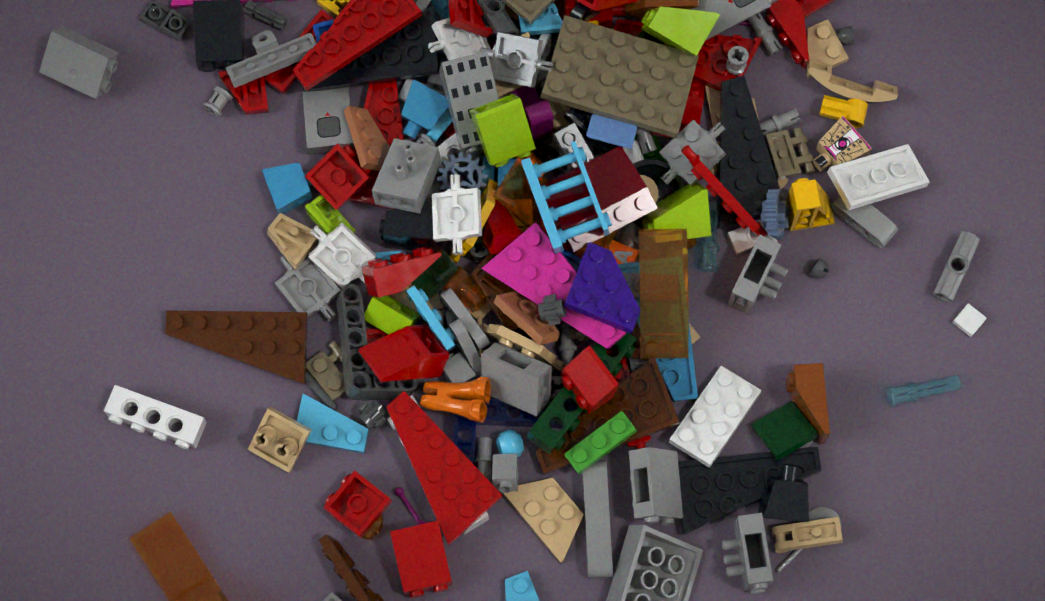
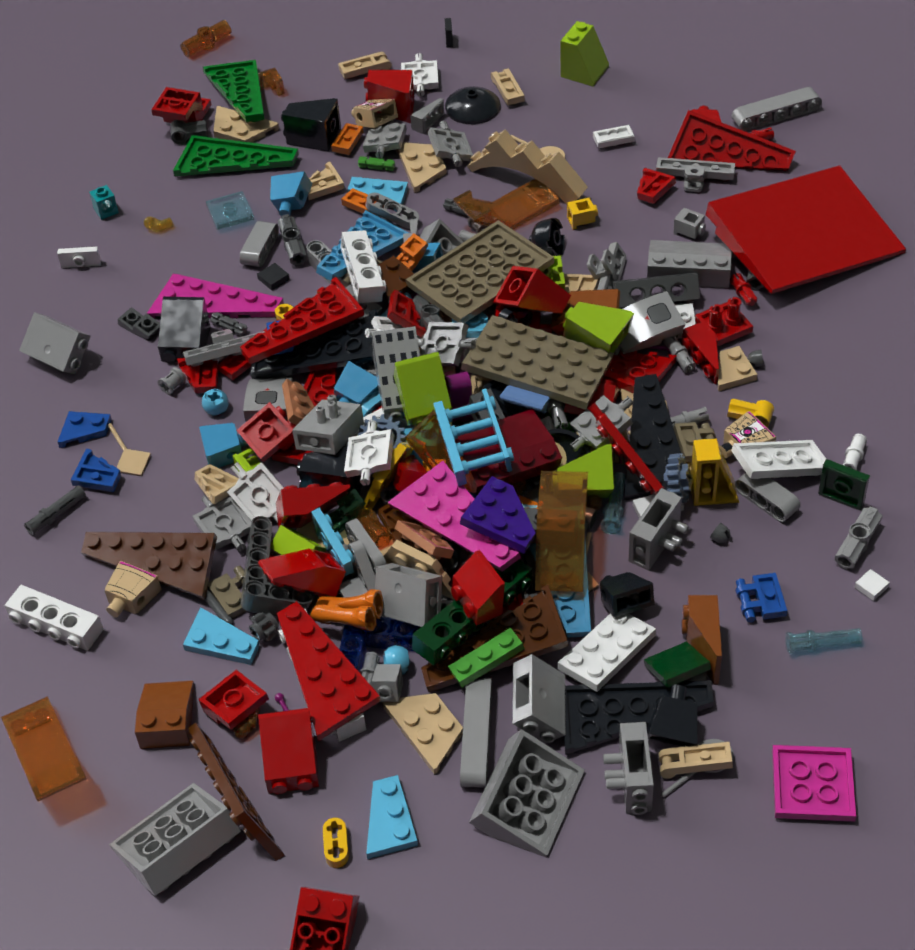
camera: 10 degrees right, 25 degrees down
(122, 286) = (47, 515): none -> dark grey pin
(131, 168) = (83, 427): none -> blue wing
(159, 231) = (95, 473): none -> blue wing
(194, 209) = (131, 461): none -> tan piece
(226, 378) = (130, 589): none -> tan torso
(264, 124) = (215, 402): none -> medium azure piece
(279, 439) = (167, 640): tan plate -> none
(290, 517) = (164, 715): none -> dark orange slope
(552, 309) = (449, 529): dark grey gear -> none
(729, 353) = (626, 593): none -> black torso
(737, 60) = (650, 362): light grey bush -> none
(869, 342) = (768, 595): none -> blue plate
(878, 93) = (733, 380): tan slope -> none
(917, 550) = (813, 783): none -> dark pink plate
(941, 207) = (843, 484): none -> dark green tile
(951, 159) = (854, 452): none -> white pin

